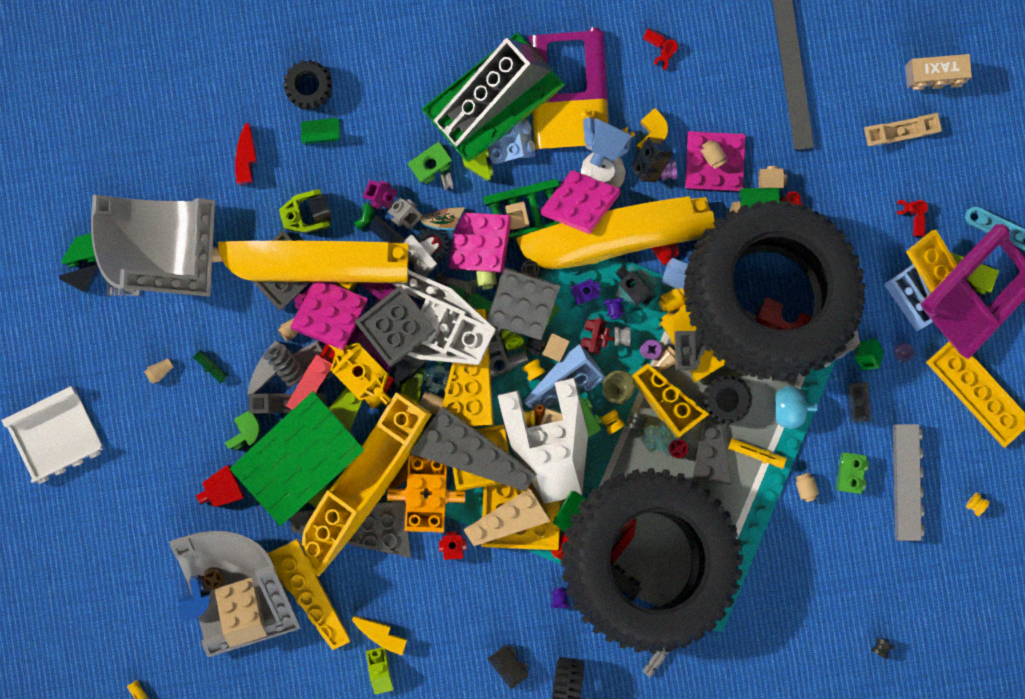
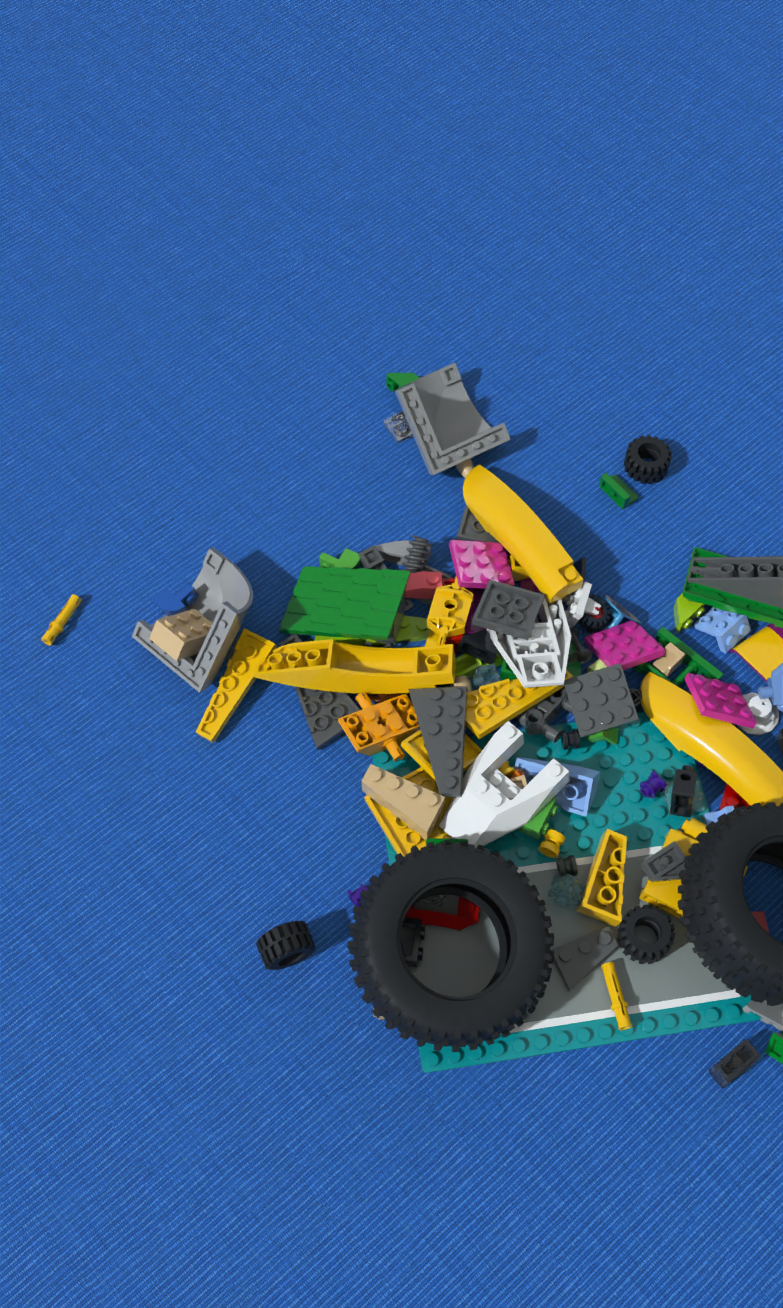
camera: 60 degrees right, 25 degrees down
(54, 434) = (251, 440): white panel -> none
(82, 278) = (384, 396): black slope -> none
(158, 370) = (347, 481): tan cone -> none
(210, 366) = (377, 514): dark green pin -> none
(212, 582) = (200, 600): dark brown wheel -> none
(221, 488) = (281, 573): red torso -> none
(245, 156) = (559, 449): red slope -> none
(286, 331) = (444, 552): tan cone -> none
(319, 209) = (559, 517): lime piece -> none
(367, 216) = (582, 554): green arm -> none
(379, 194) = (604, 553): magenta brick -> none
(379, 670) = (198, 780): lime slope -> none
(380, 634) = (232, 764): yellow slope -> none
(405, 213) = (605, 585): light grey brick -> none
(434, 153) = (666, 574): bright green brick -> none
(447, 181) = (652, 597): light grey bush -> none
(449, 553) = (349, 775): red brick -> none
(508, 666) = (269, 888): clear smoke brick -> none
(512, 339) = (563, 722): lime wheel -> none
(533, 369) = (549, 749): yellow wheel -> none
(555, 347) = (582, 754): tan panel -> none
(580, 297) = (641, 755): dark purple brick -> none
(599, 337) = (617, 786): dark red hips -> none
(618, 387) = (586, 827): olive hair -> none
(621, 336) = (632, 806): light grey wheel -> none
(647, 351) = (637, 842): medium lavender wheel -> none
(655, 662) = (358, 1024): light grey axle -> none
(665, 360) = (636, 857): tan cone -> none
(678, 446) = (570, 914): dark red wheel -> none
(792, 407) = (682, 999): medium azure piece -> none
(807, 487) = (618, 1066): tan brick -> none
(851, 473) = (662, 1103): bright green brick -> none
(882, 648) = (512, 1253): pearl dark grey wheel -> none
(907, 482) = (693, 1169): light grey brick -> none
(977, 504) = (726, 1261): yellow wheel -> none

